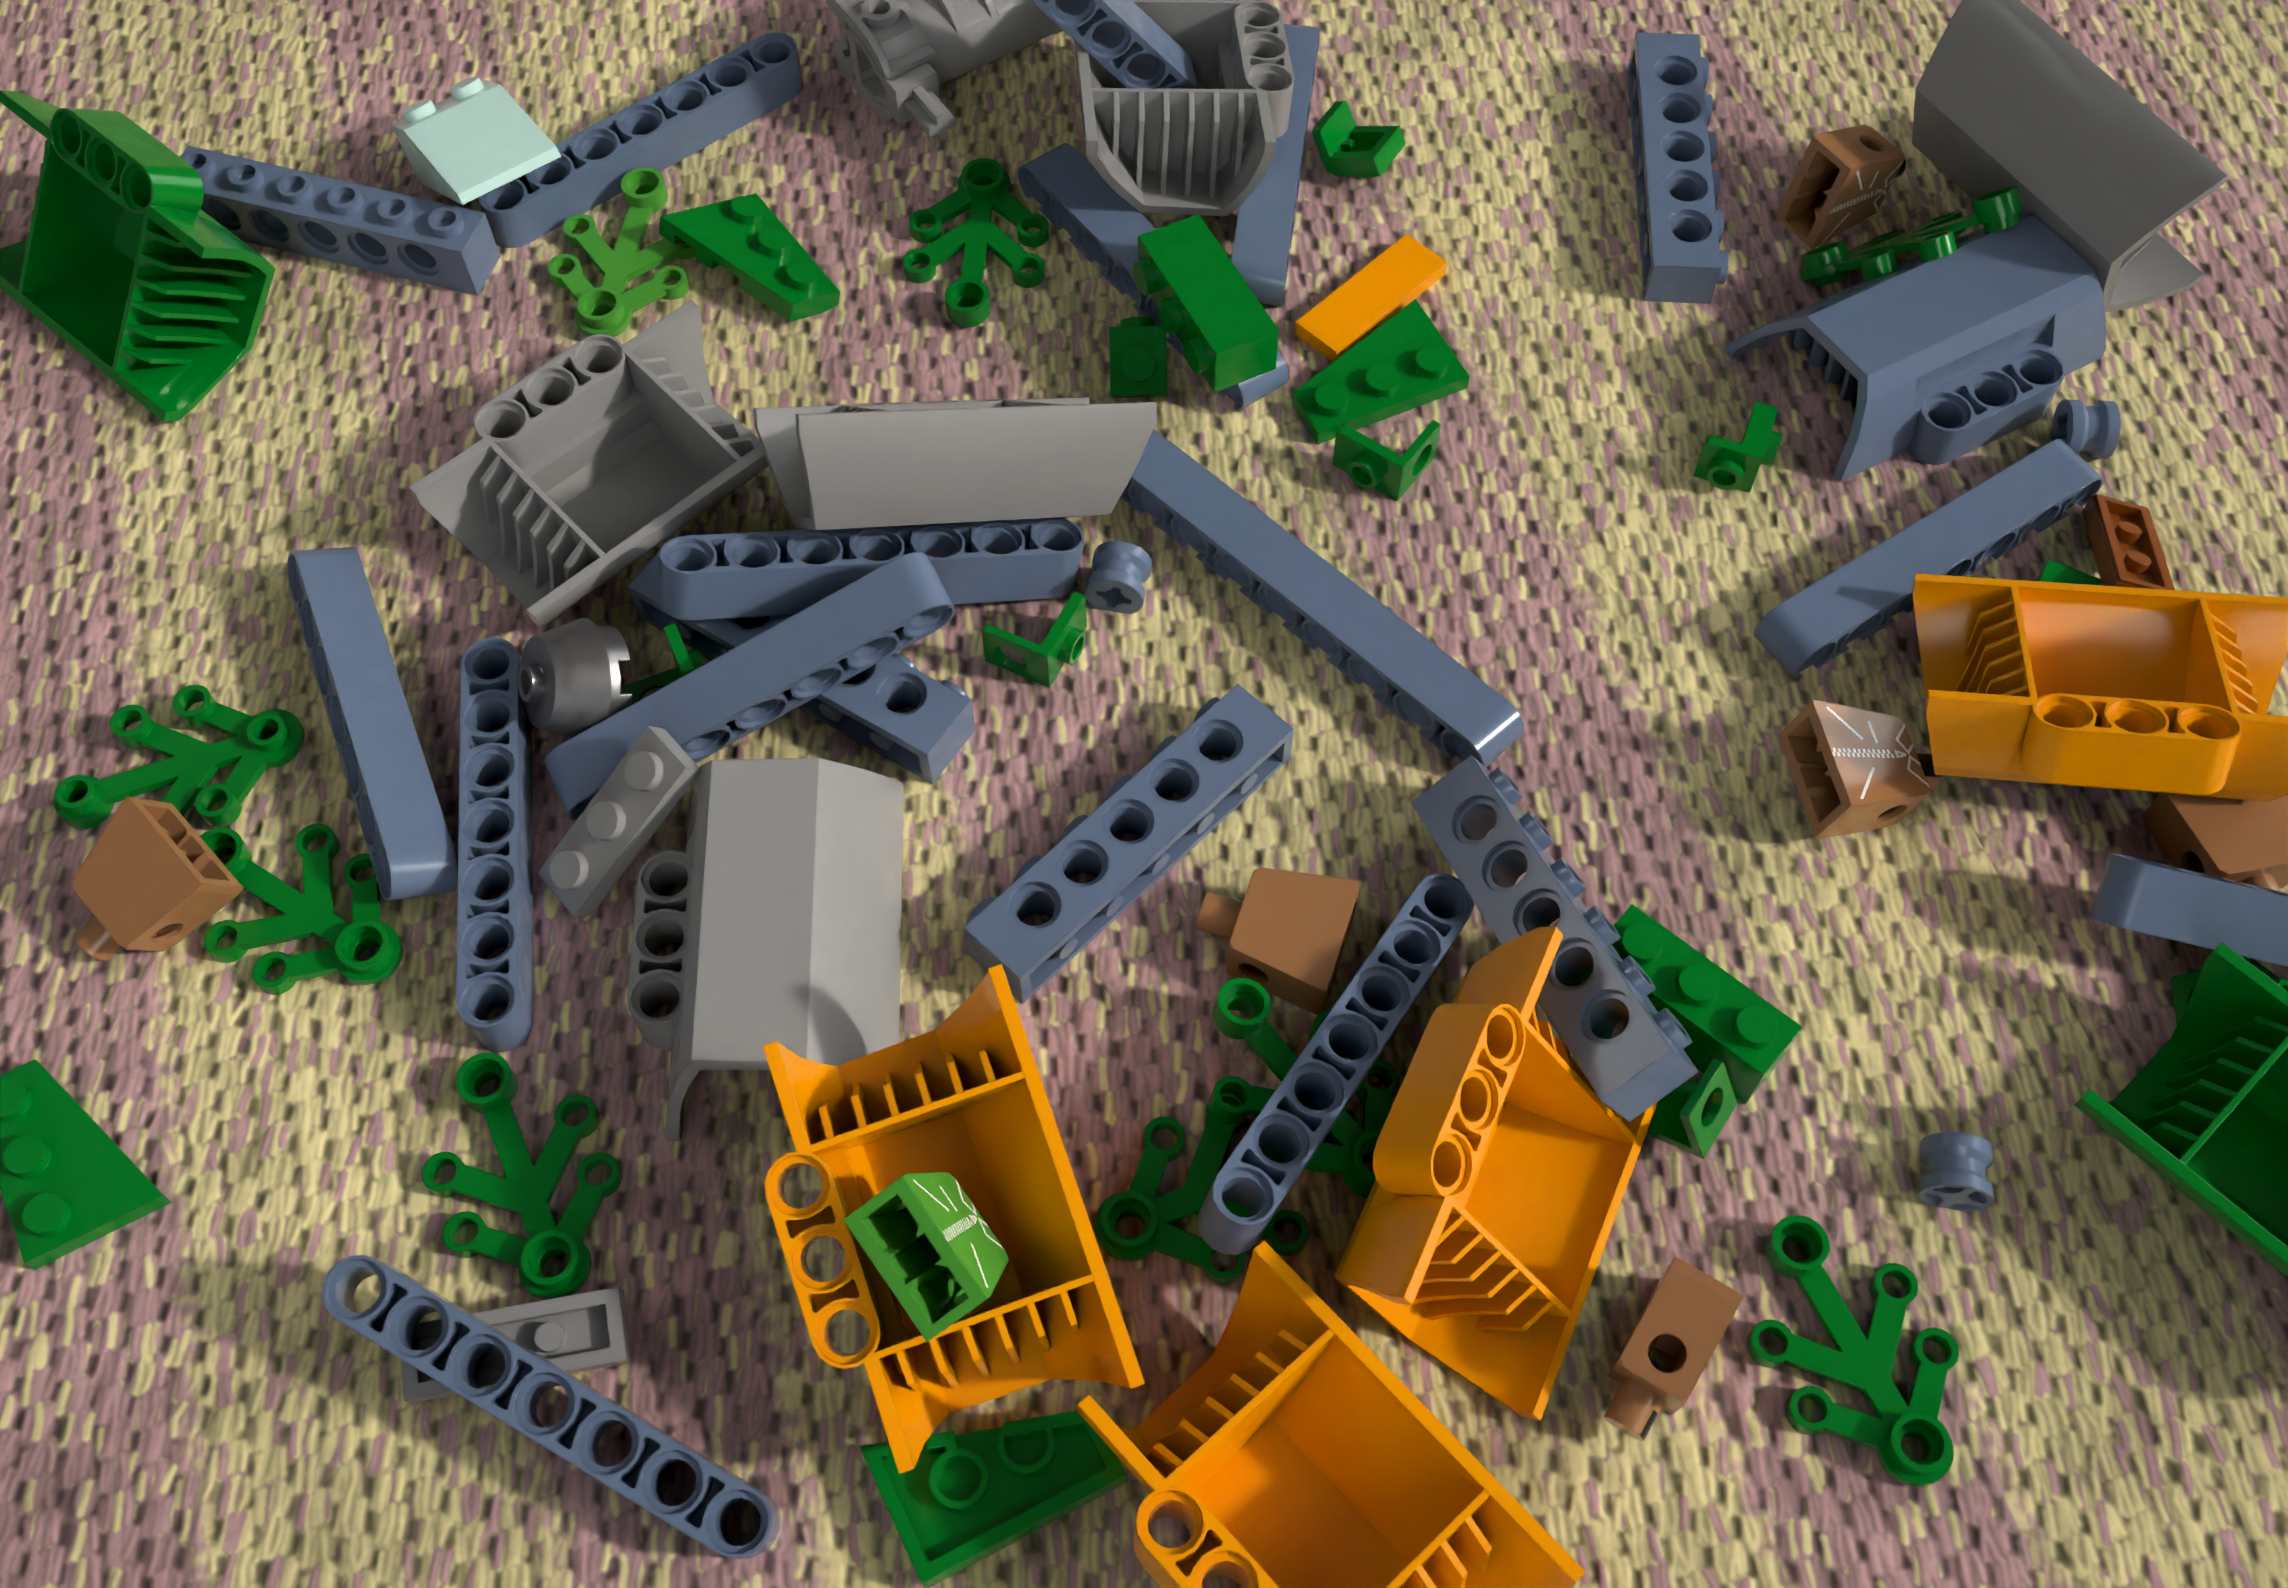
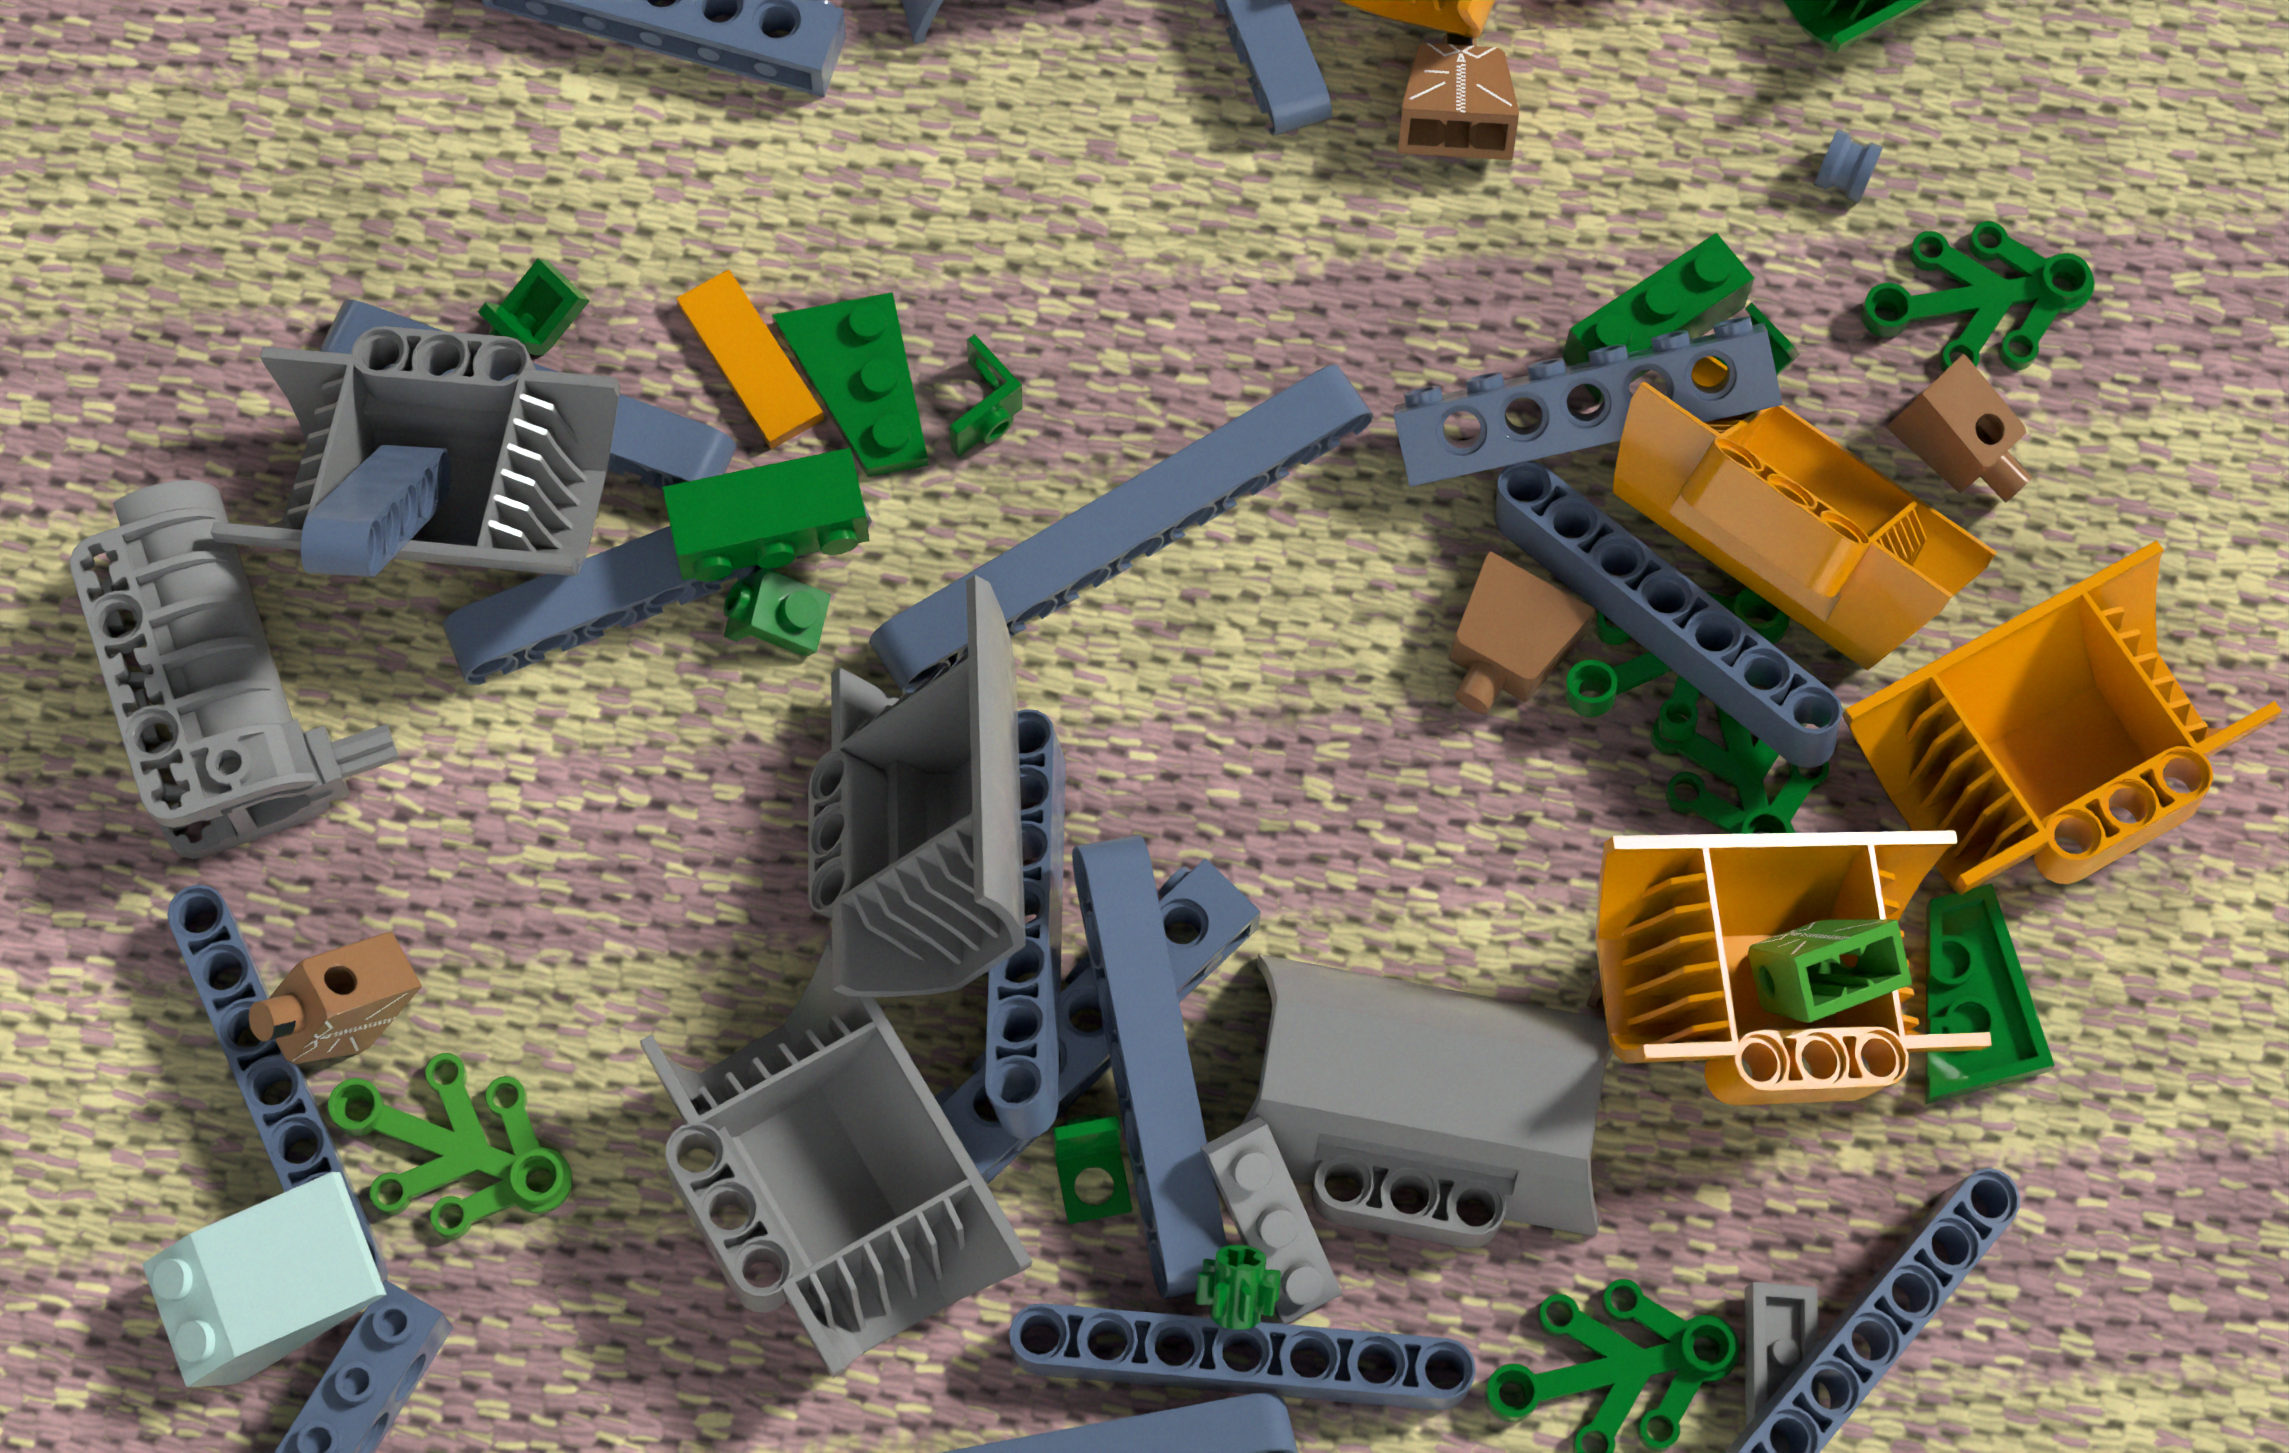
camera: 80 degrees left, 10 degrees up
(541, 798) = (1238, 1287): none -> green gear
(573, 677) = (1090, 1242): flat silver cone -> none
(705, 128) = (337, 1000): none -> medium nougat torso
(757, 250) = (493, 992): green wing -> none
(980, 189) = (541, 744): green plant -> none
(1043, 661) = (1140, 766): green bracket -> none
(1118, 577) = (1068, 693): sand blue wheel -> none
(1232, 726) = (1307, 613): sand blue brick -> none
(1736, 464) = (1067, 62): green bracket -> none

